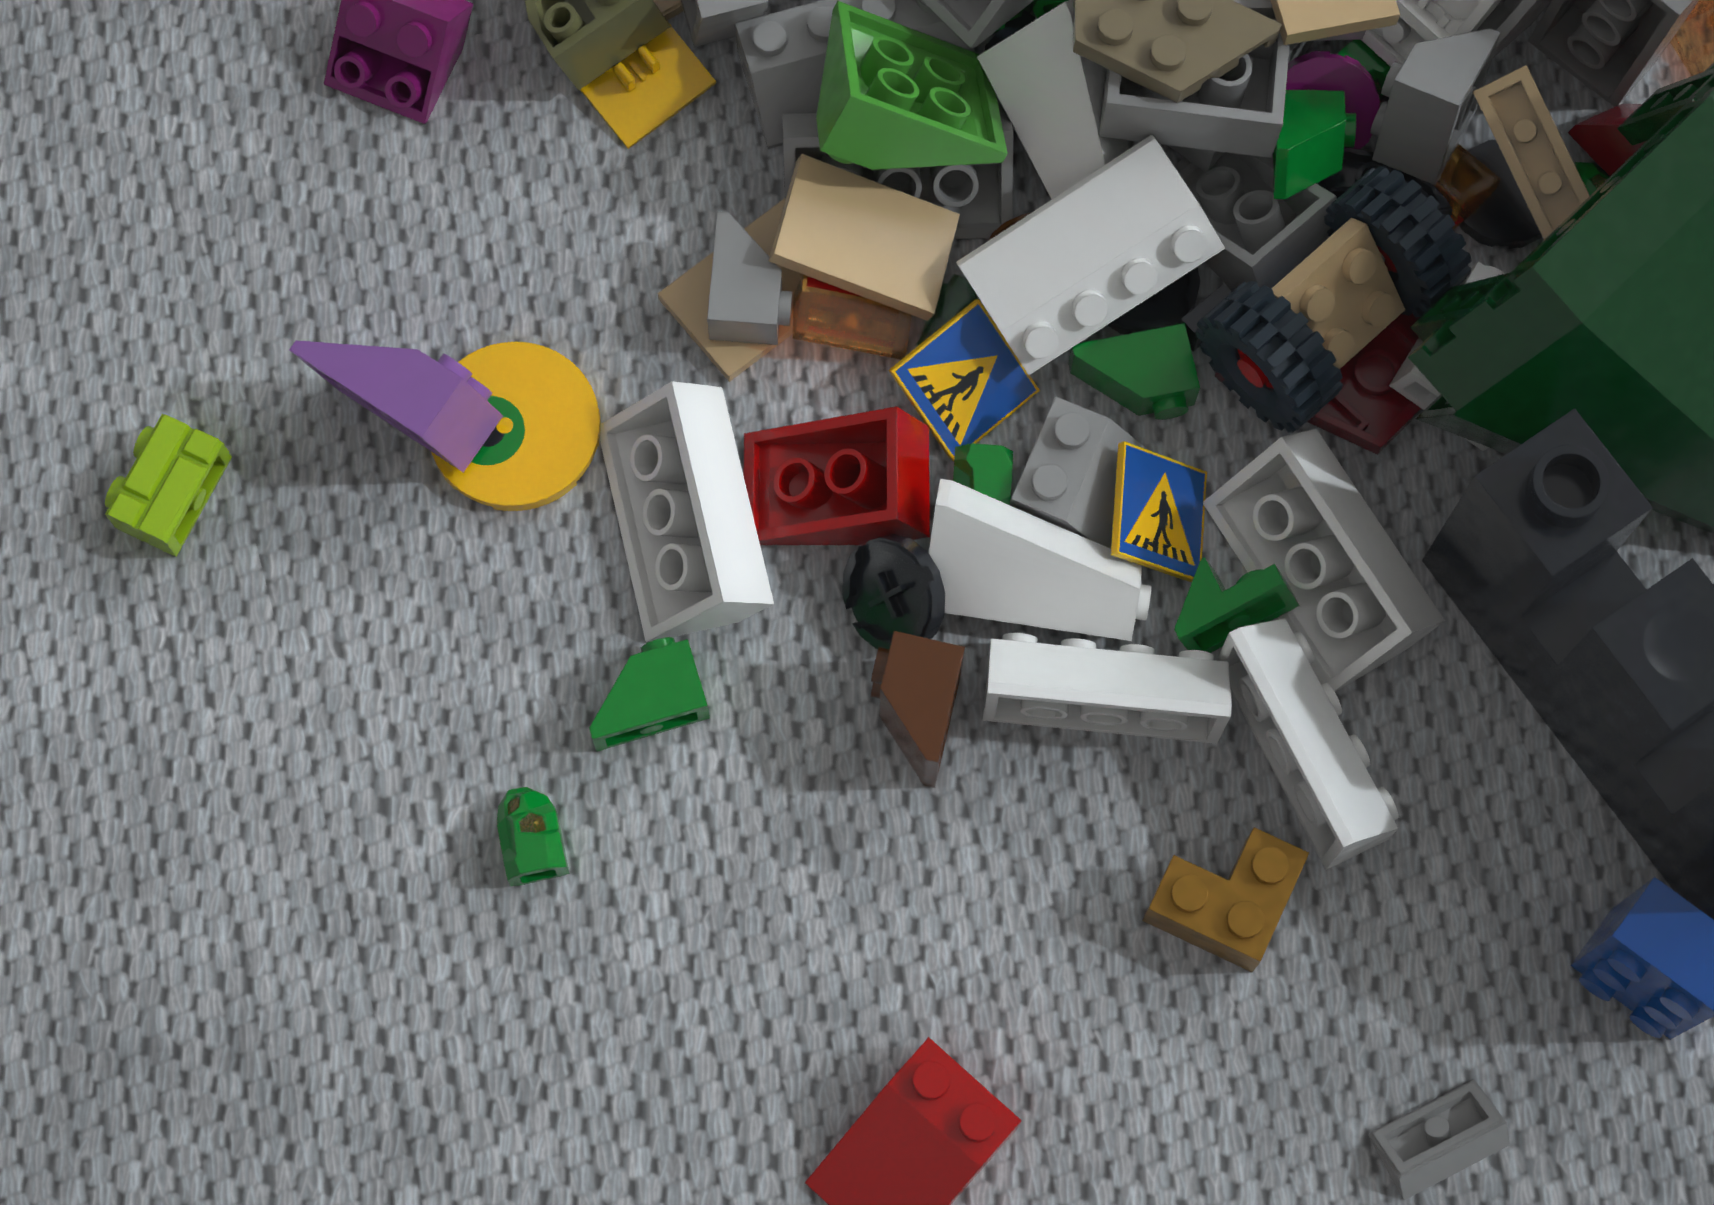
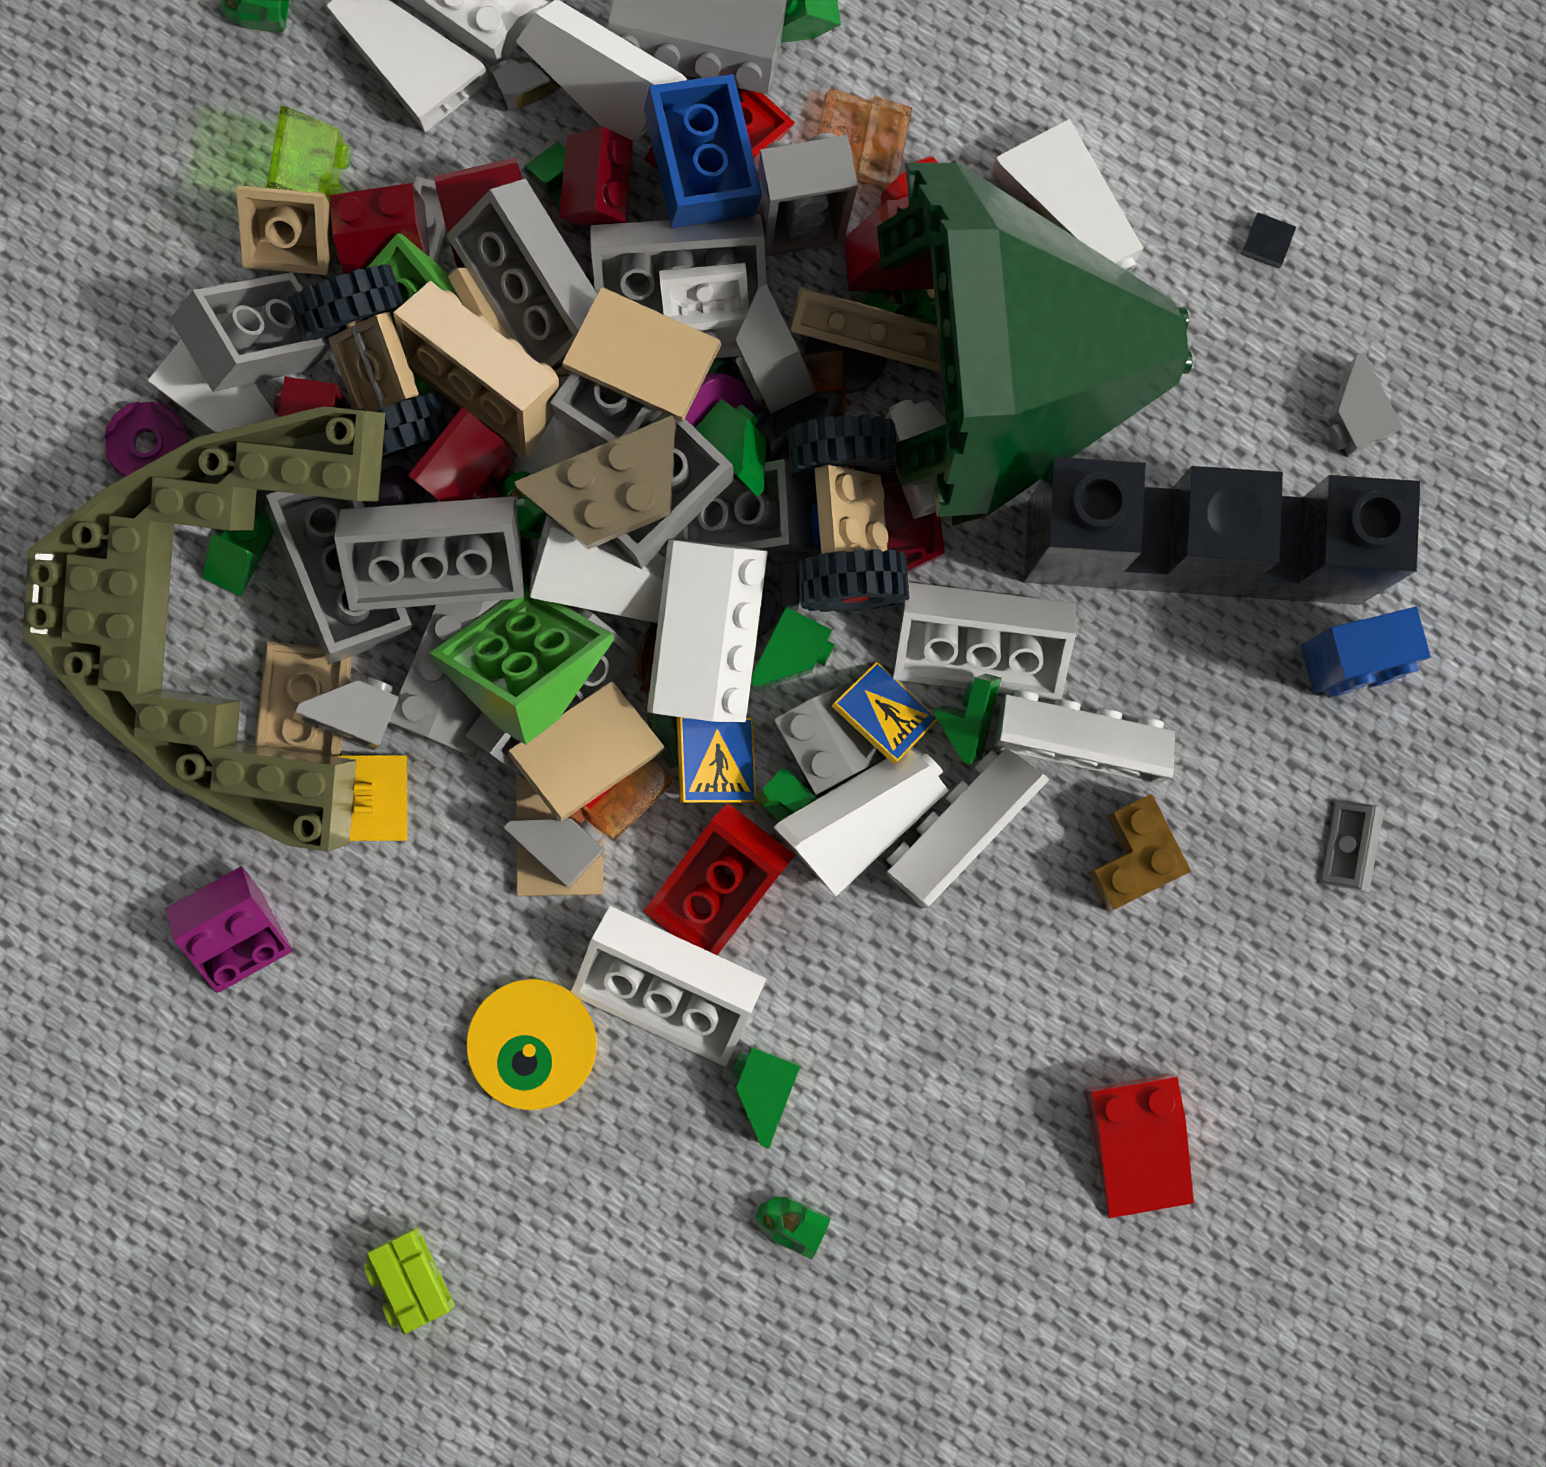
camera: 55 degrees left, 10 degrees up
(419, 396) = (490, 1097): medium lavender slope -> none
(892, 589) = (816, 905): black tile -> none
(917, 697) = (892, 941): reddish brown slope -> none

